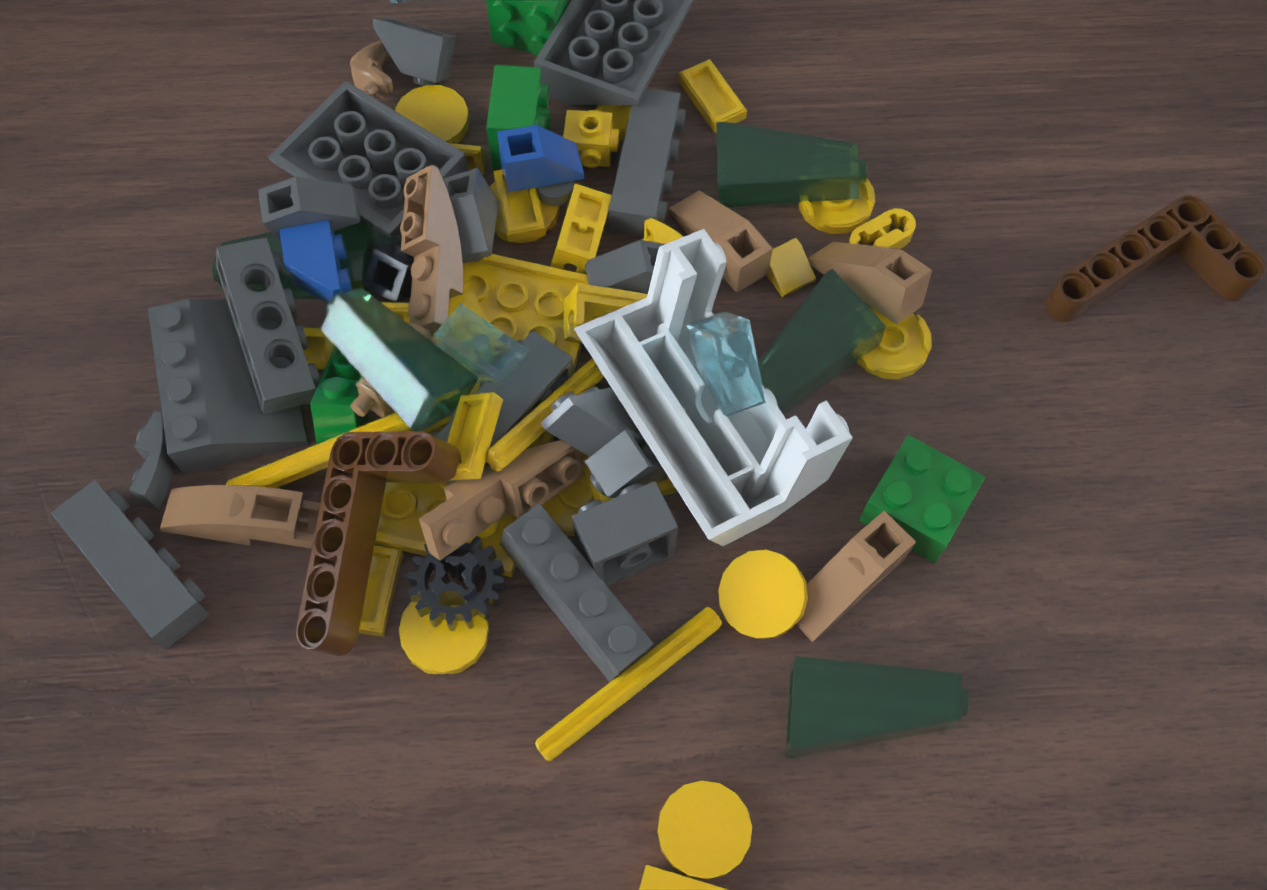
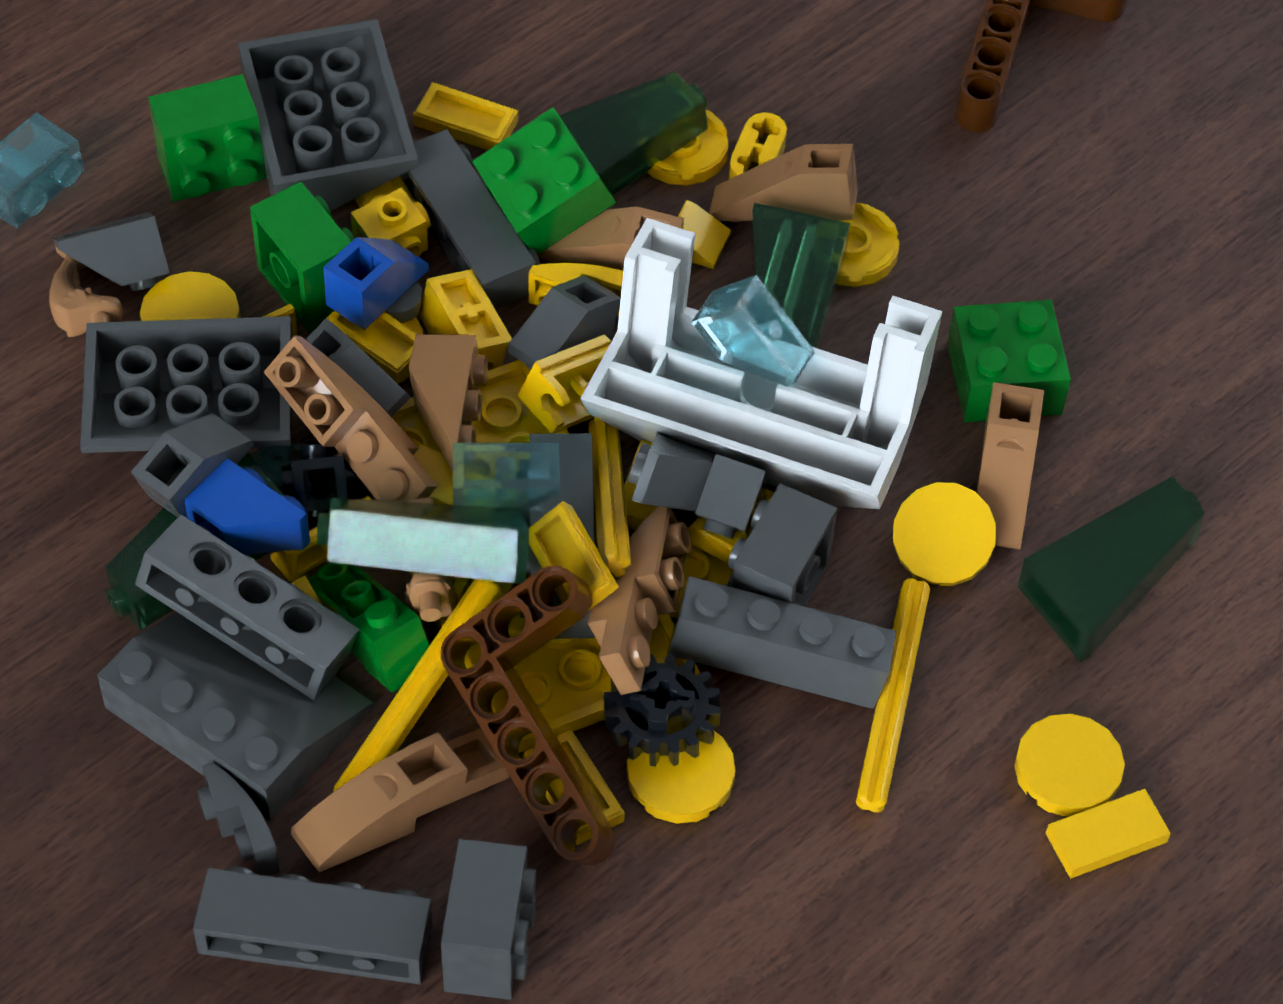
camera: 40 degrees left, 10 degrees down
(212, 643) = (488, 919): none -> dark grey brick
(516, 265) = (445, 387): none -> medium nougat slope
(702, 165) = (543, 181): none -> green brick

